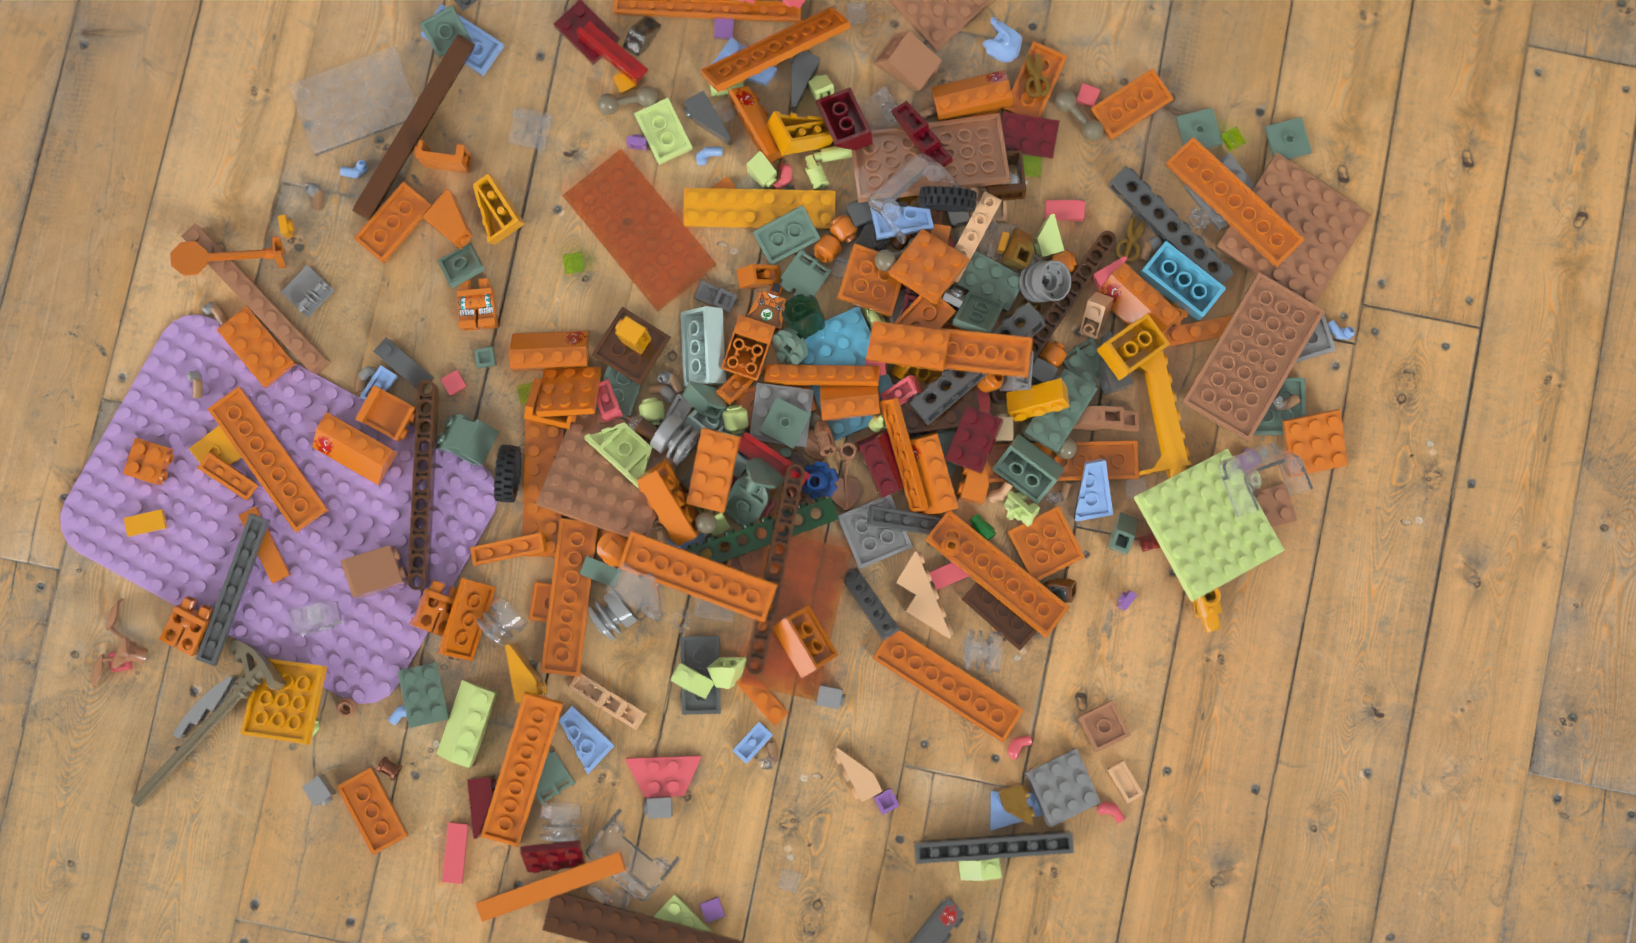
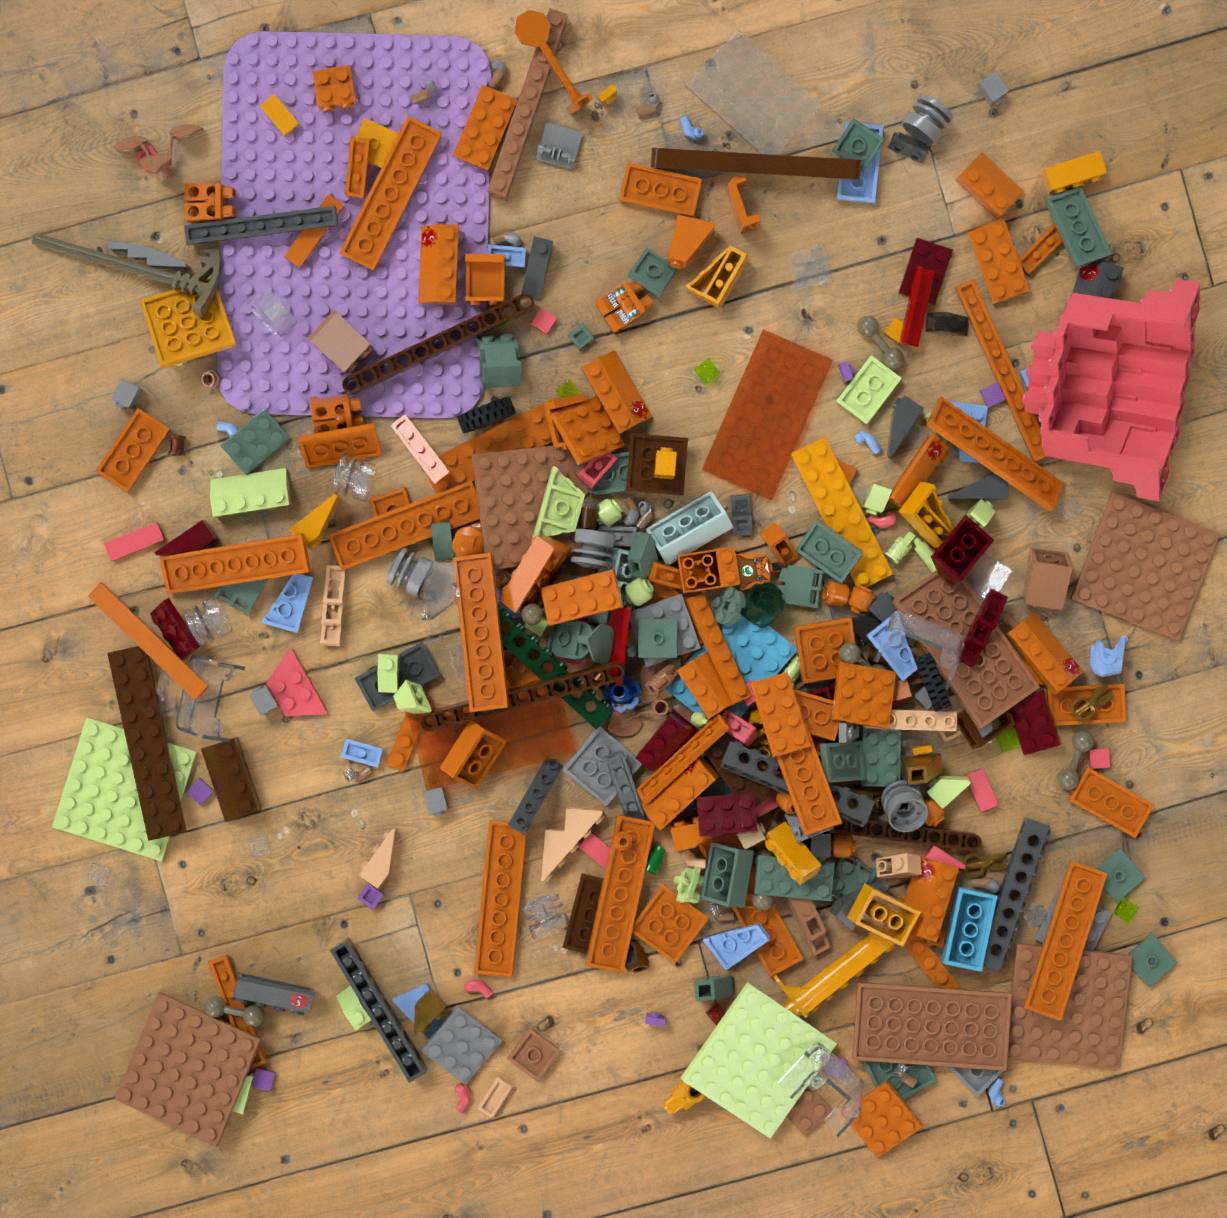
camera: 65 degrees right, 5 degrees up
(715, 875) = (231, 779): none -> reddish brown slope

